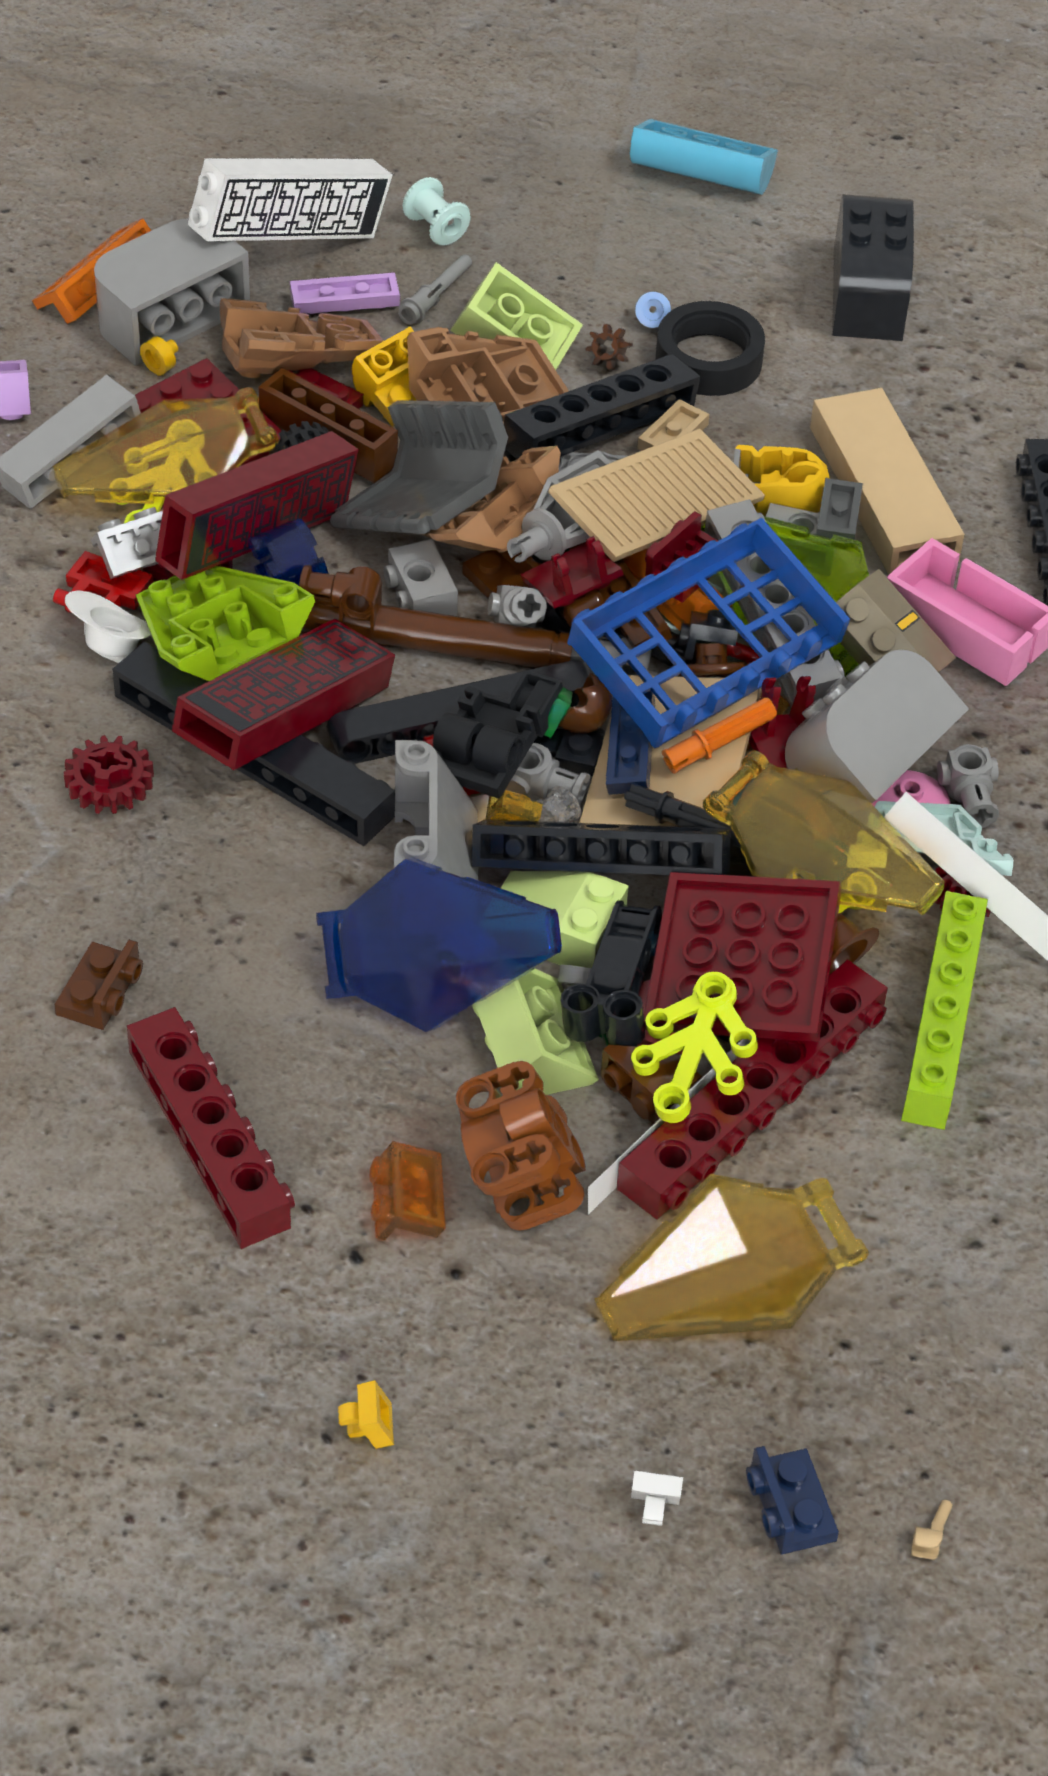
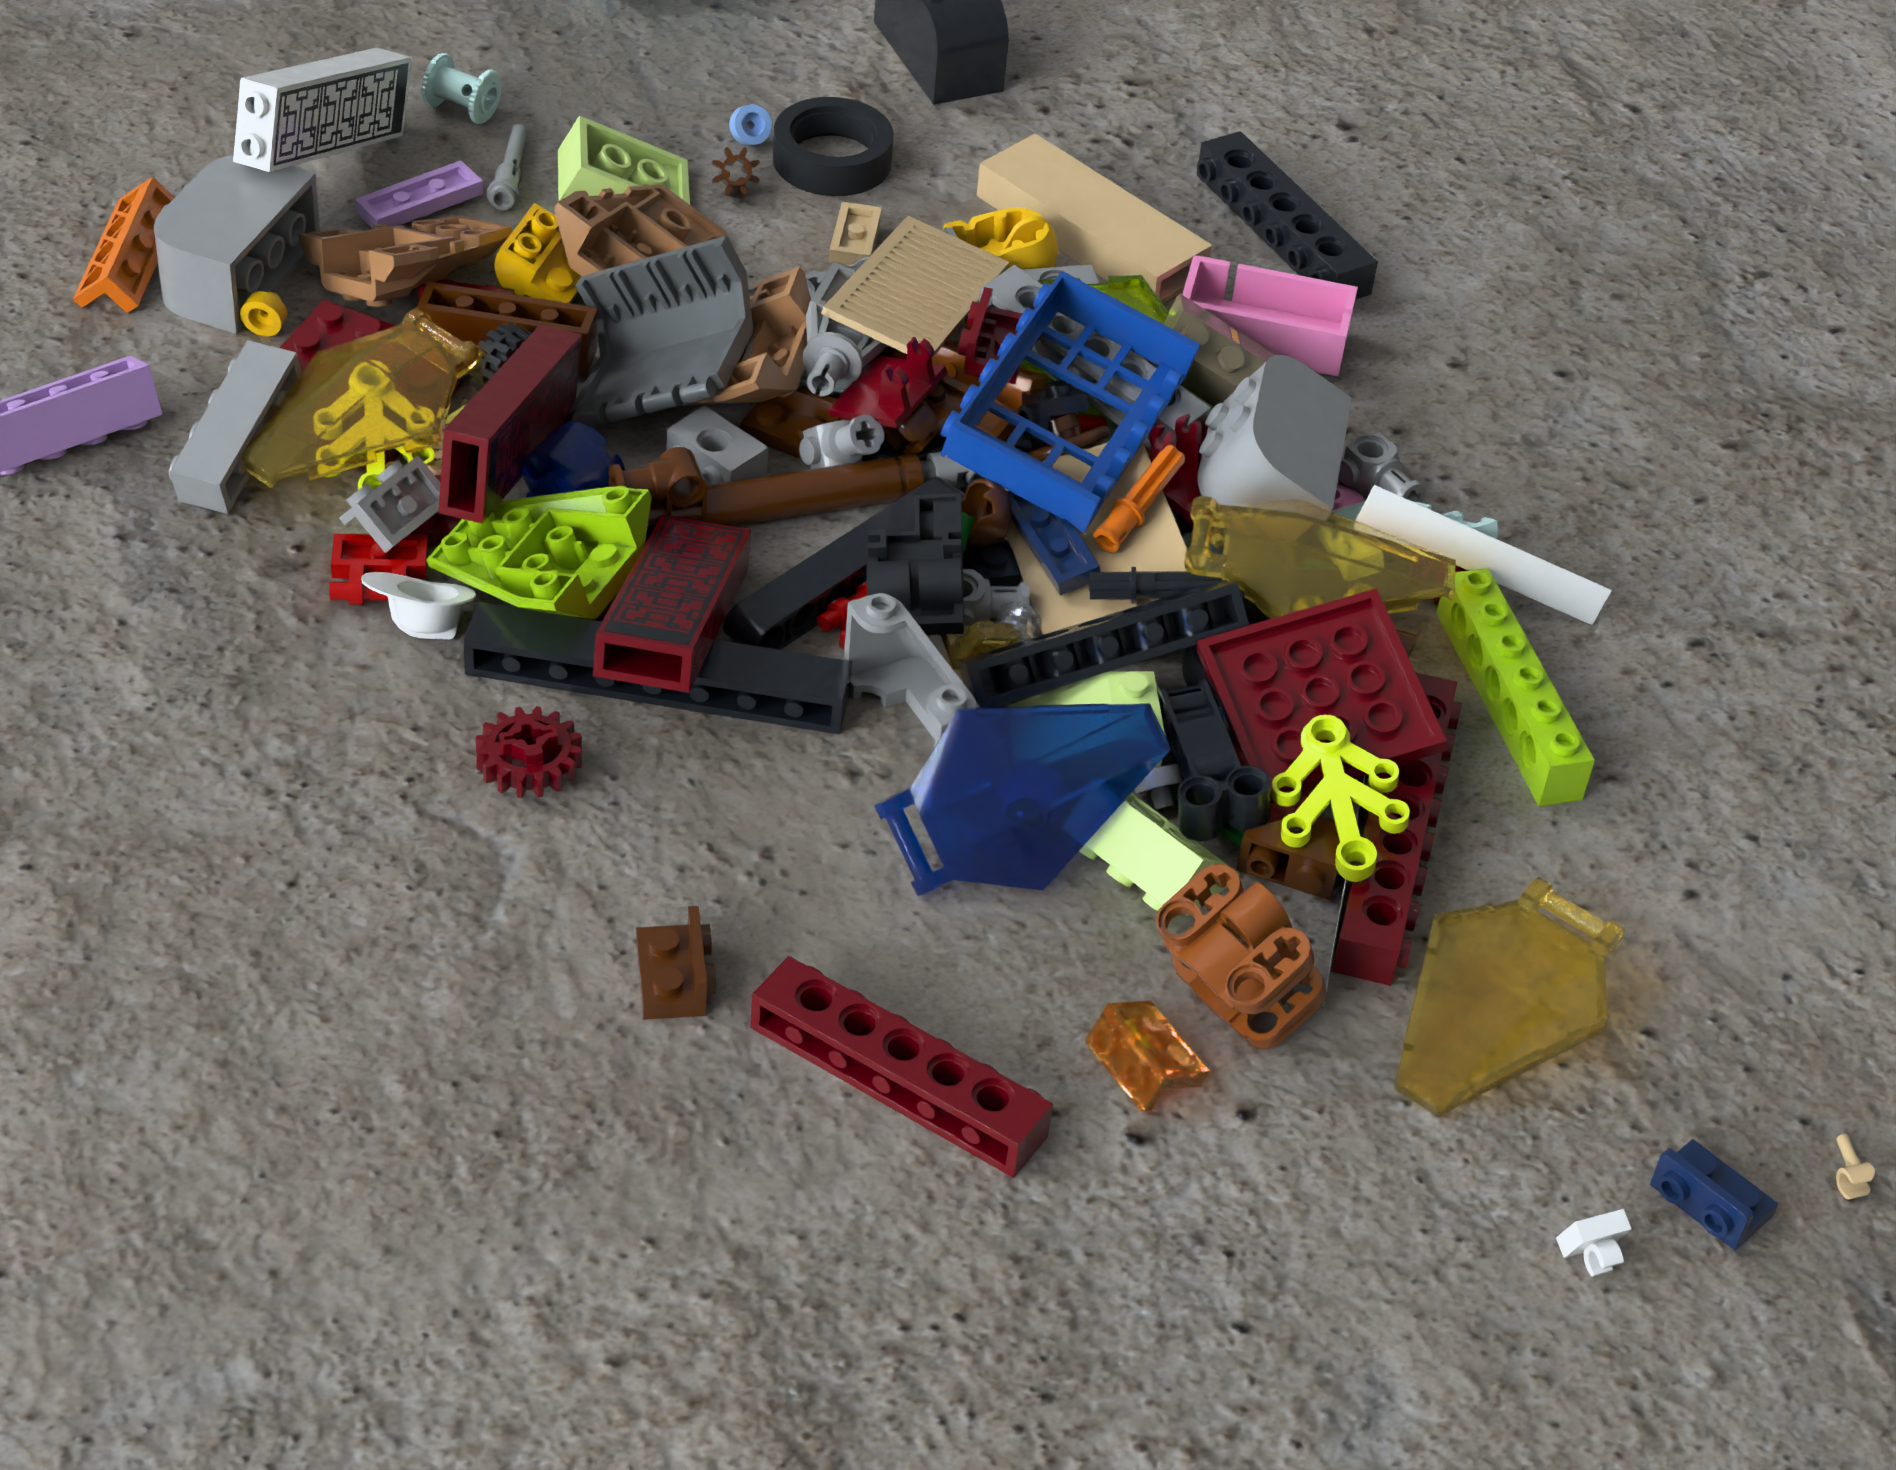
camera: 30 degrees left, 5 degrees down
(369, 1415) = (1275, 1284): yellow tile -> none
(602, 408) = (791, 220): black brick -> none
(839, 508) = (1088, 253): dark grey plate -> none

